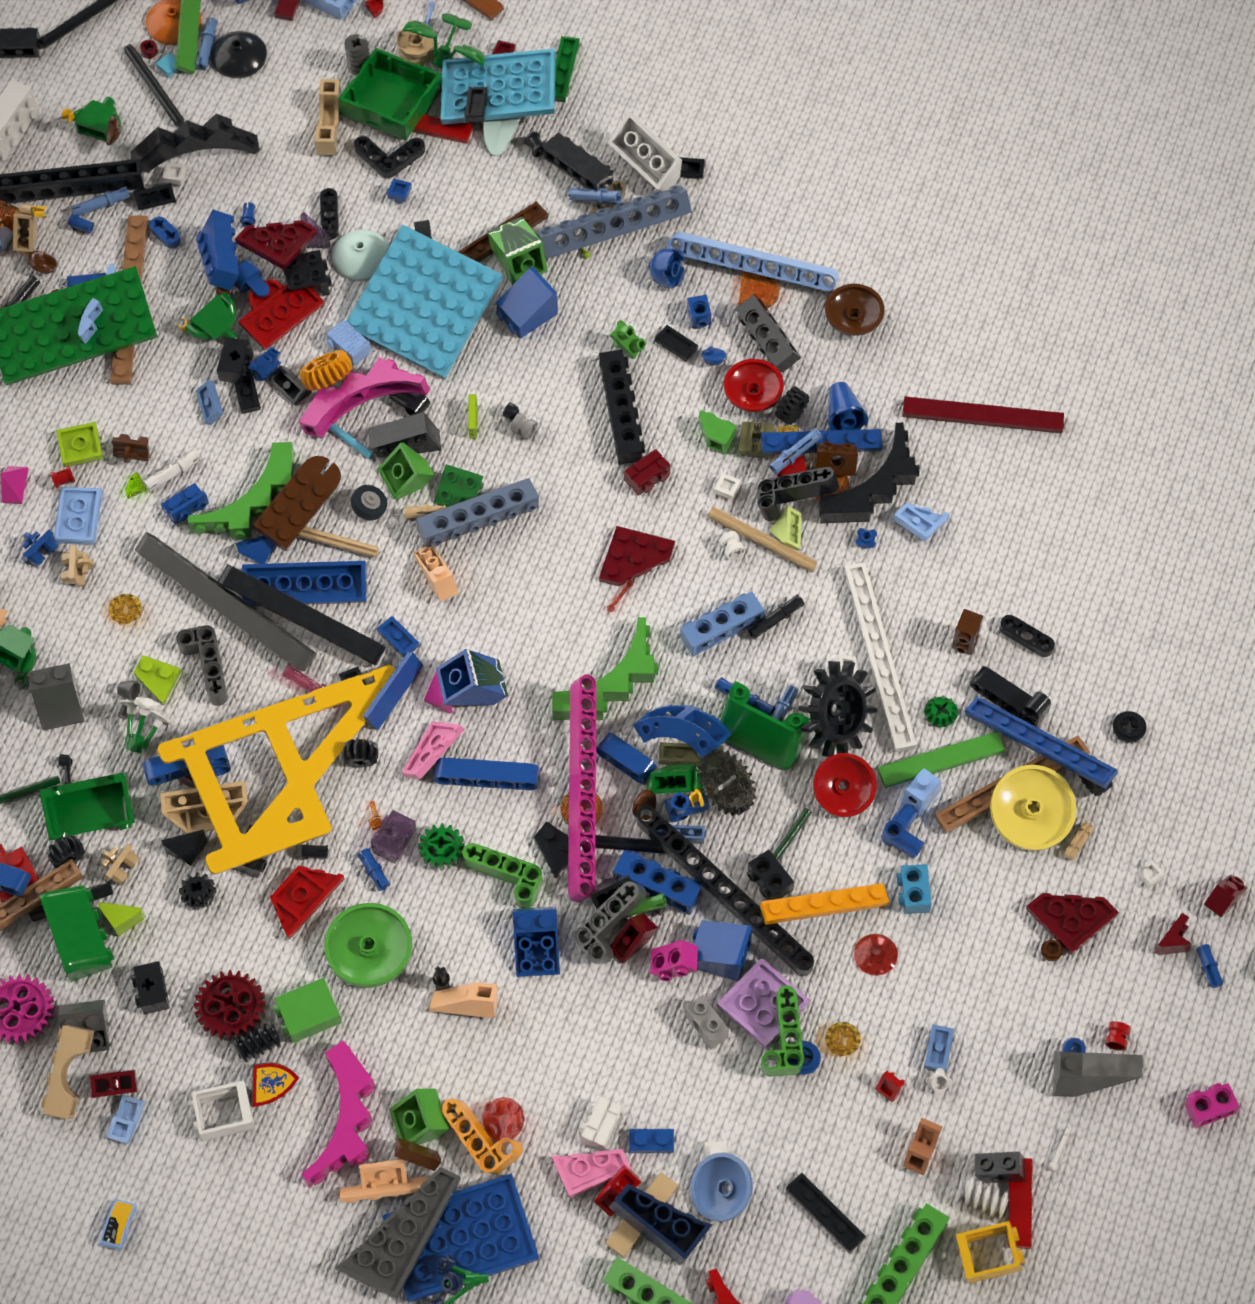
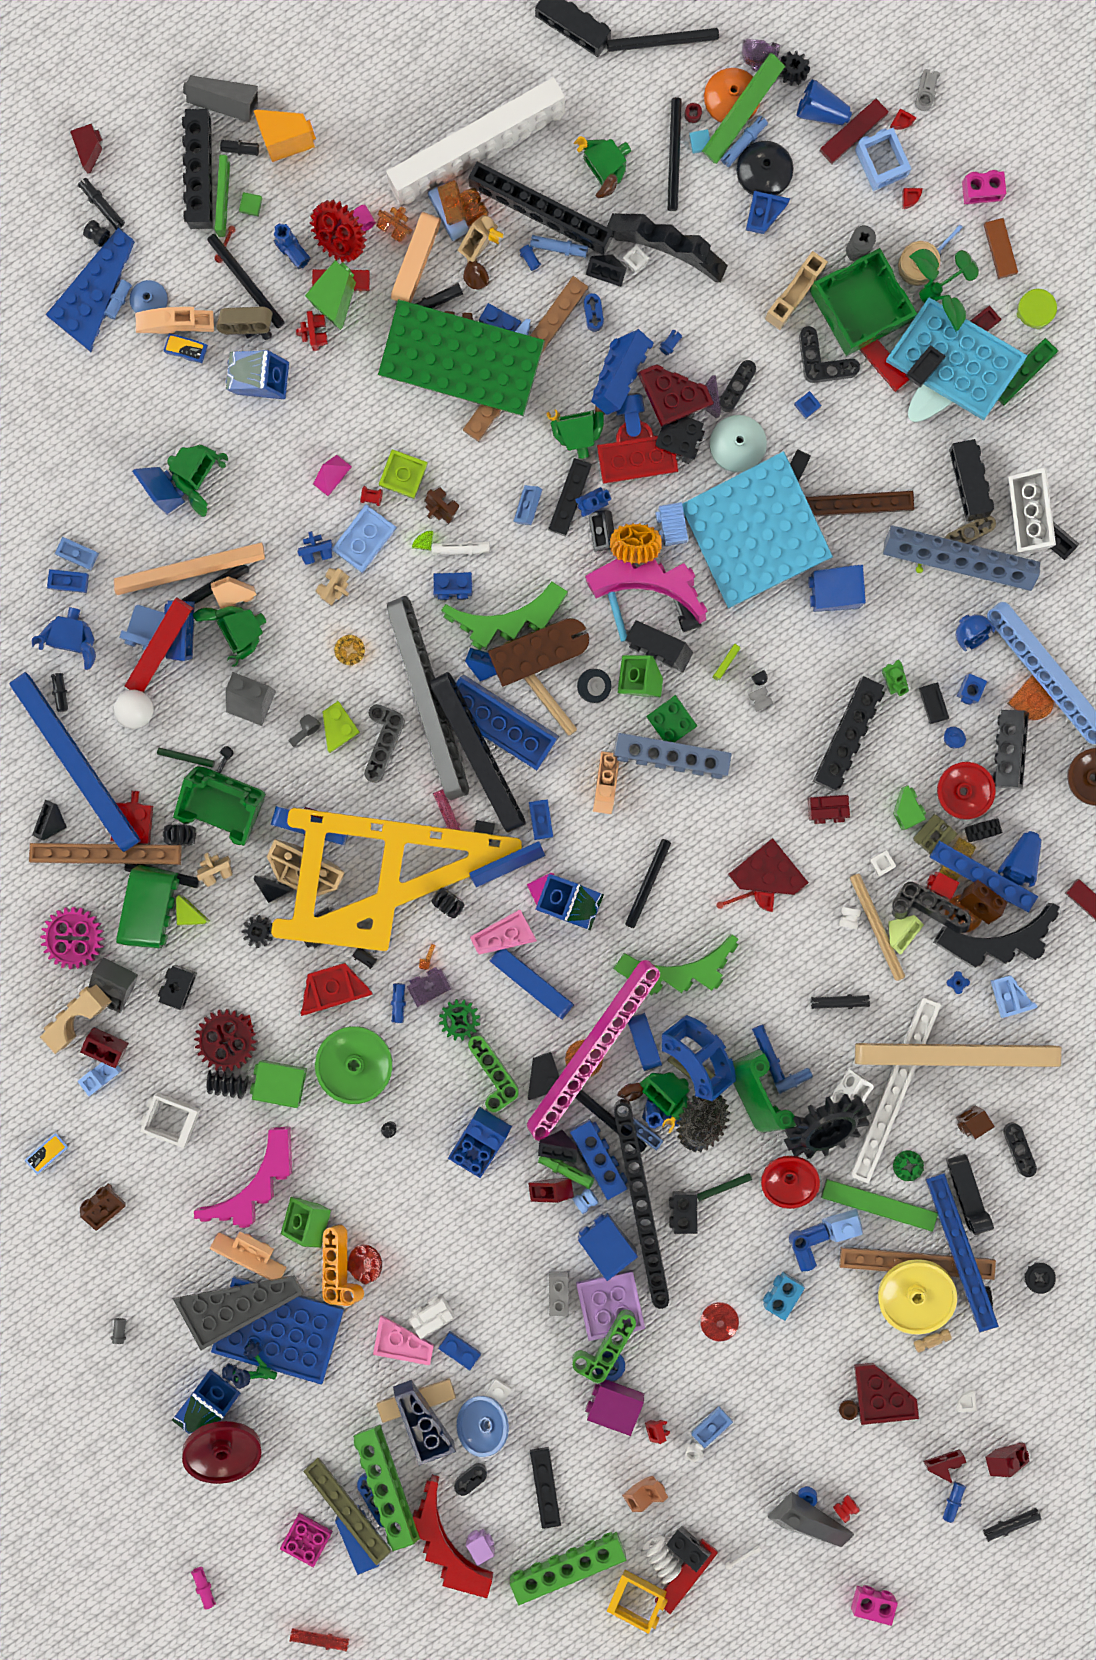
camera: 35 degrees right, 25 degrees up
(87, 326) = (469, 374): light blue slope -> none
(136, 742) = (306, 760): plant -> none
(206, 1237) = (101, 1207): none -> reddish brown bracket
(234, 360) = (576, 472): black brick -> none
(260, 80) = (764, 211): none -> blue wing
(270, 1082) = (216, 1122): shield -> none
(411, 512) = (633, 722): tan pin -> none
(417, 1154) = (286, 1250): reddish brown slope -> none
(468, 999) = (396, 1156): light nougat slope -> none
(517, 249) = (865, 531): bright green slope -> none
(533, 630) = (648, 883): none -> black axle
(534, 142) = (949, 433): black bush -> none
(538, 20) = (1037, 308): none -> lime tile
(602, 195) = (967, 528): medium blue pin -> none
(612, 919) = (543, 1168): dark grey beam -> none
(614, 1187) = (409, 1371): red slope -> none
(647, 578) = (765, 900): none -> red tile
(671, 926) = (582, 1203): none -> light blue wheel
(674, 960) = (566, 1234): dark pink brick -> none
(699, 642) = (824, 986): medium blue brick -> none
(753, 1254) = (473, 1482): none -> black beam
(777, 465) = (946, 878): medium blue pin -> none
(824, 903) = (707, 1265): light orange plate -> none
(833, 1087) = (615, 1406): none -> magenta brick
(846, 1030) = (653, 1378): clear yellow gear -> none
(909, 589) = (958, 1055): none -> tan beam

